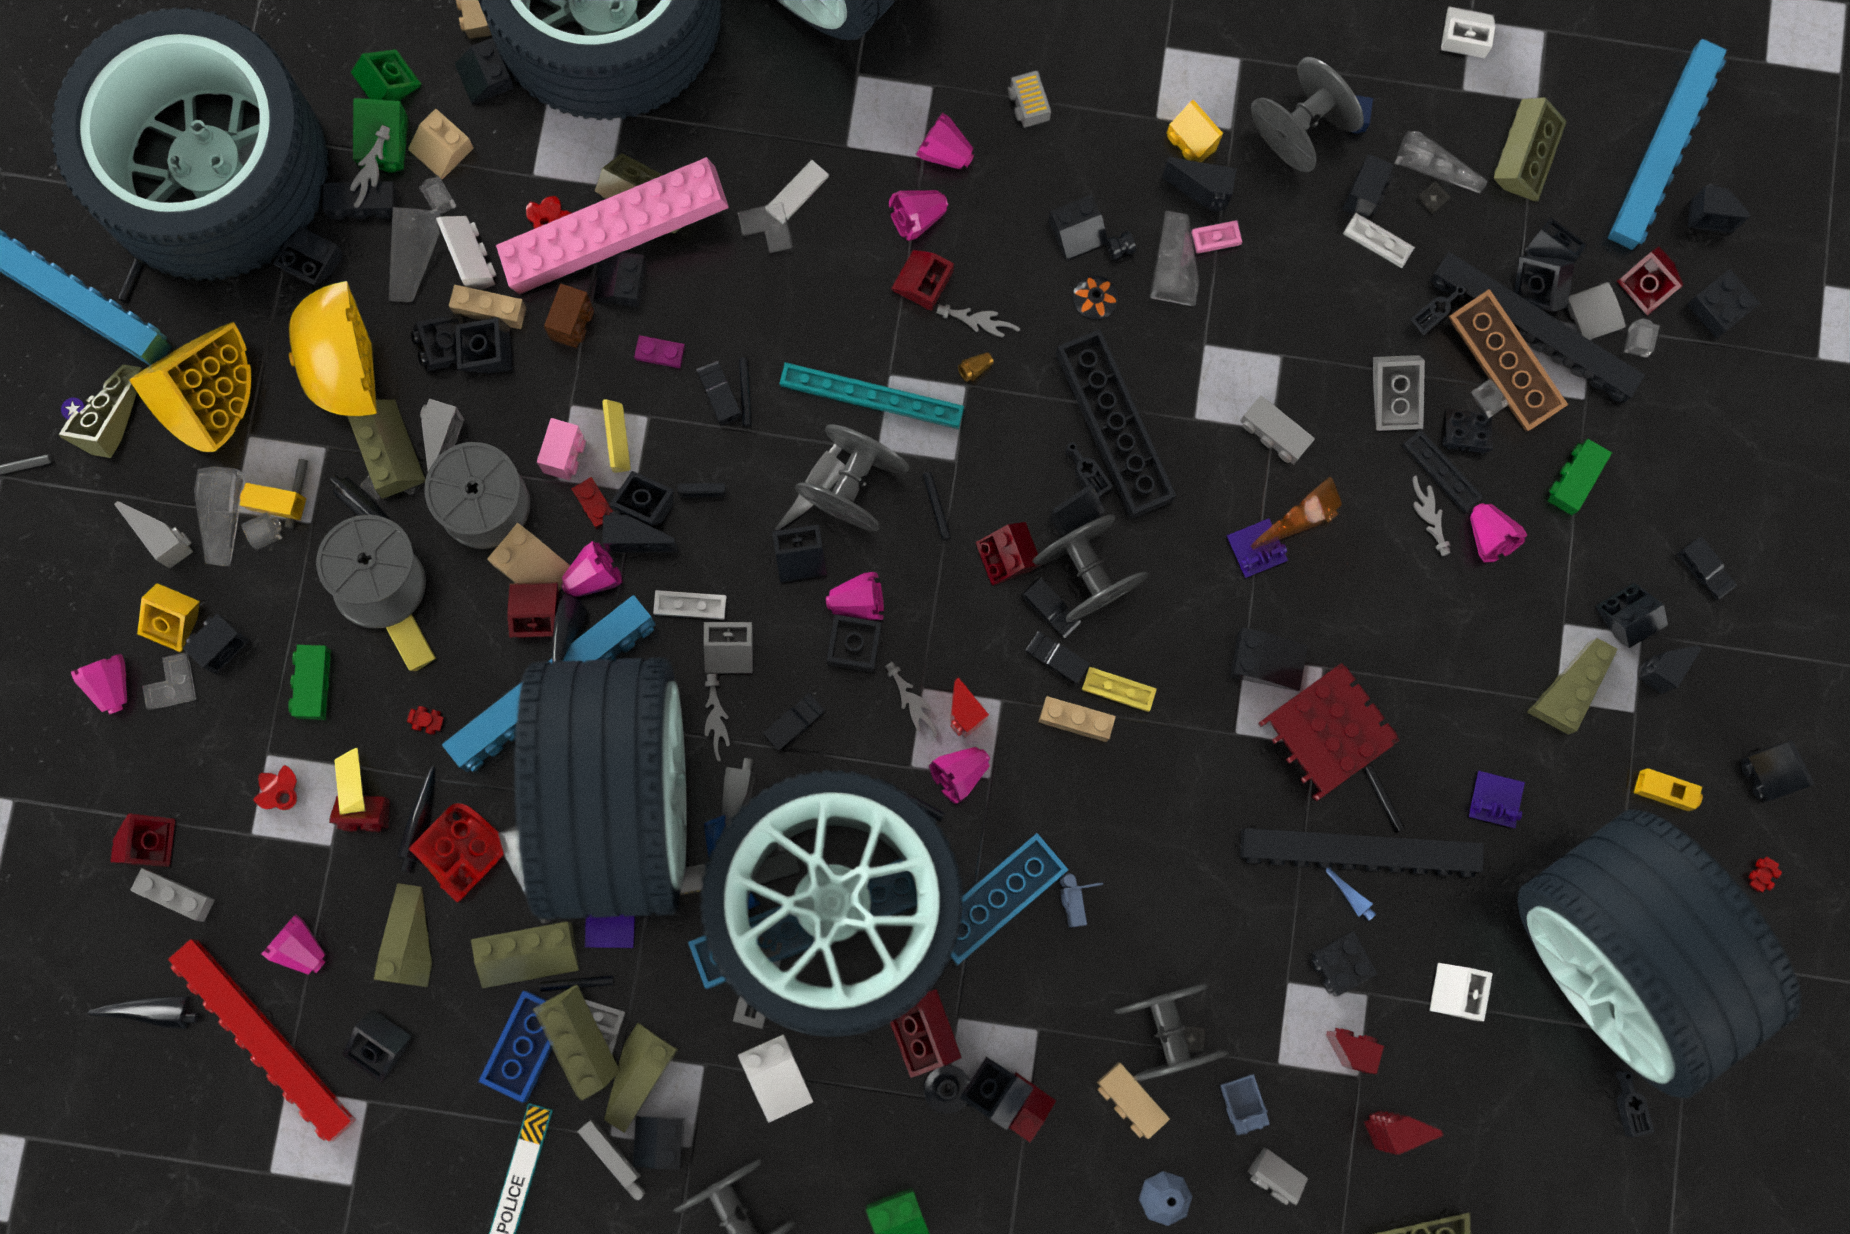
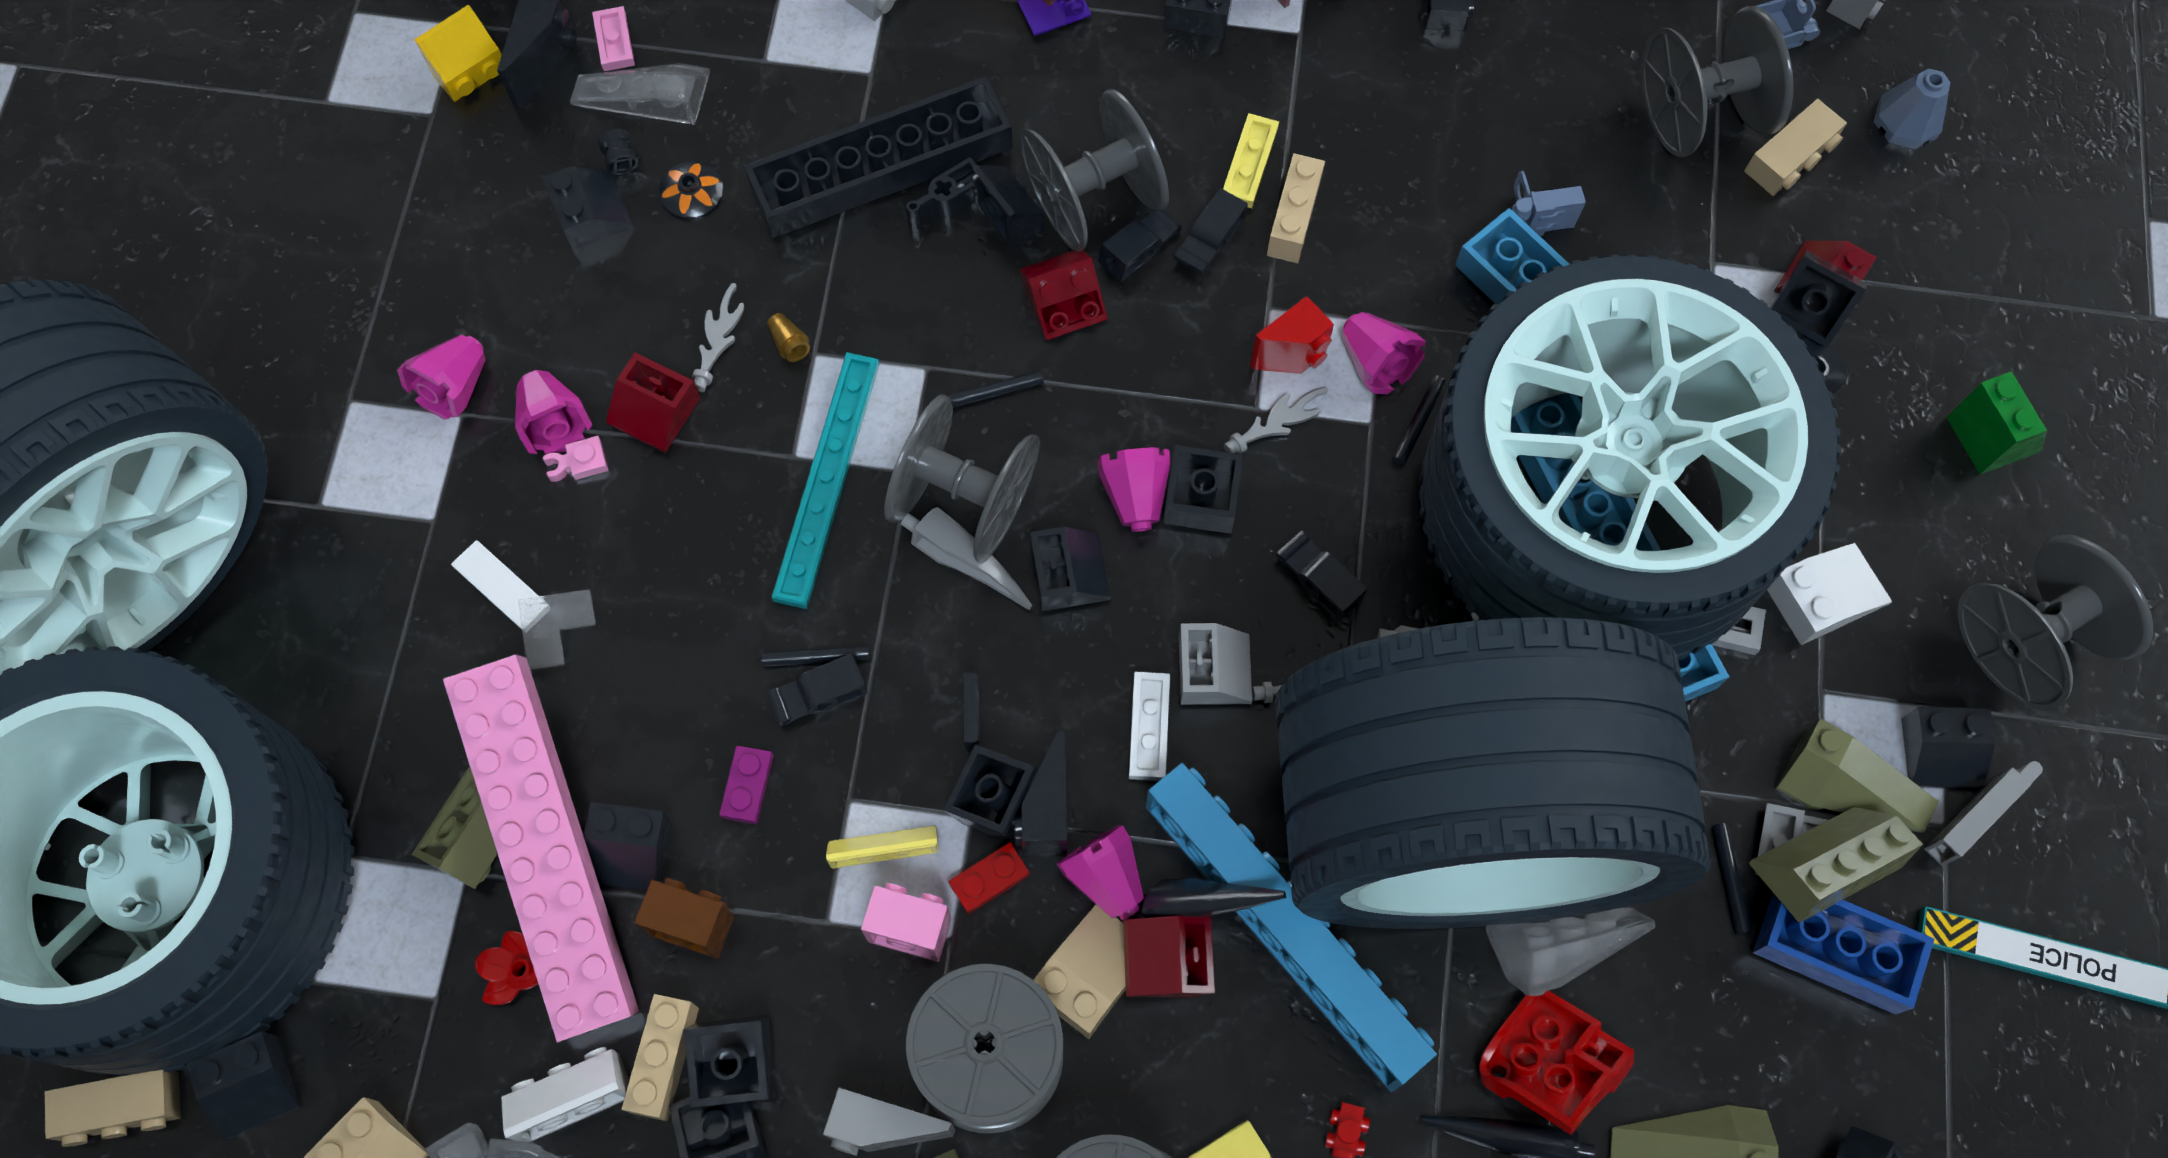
camera: 85 degrees left, 10 degrees down
(525, 954) = (1700, 960): olive slope -> none
(888, 236) = (582, 459): none -> bright pink plate
(1029, 99) = (386, 265): light grey brick -> none

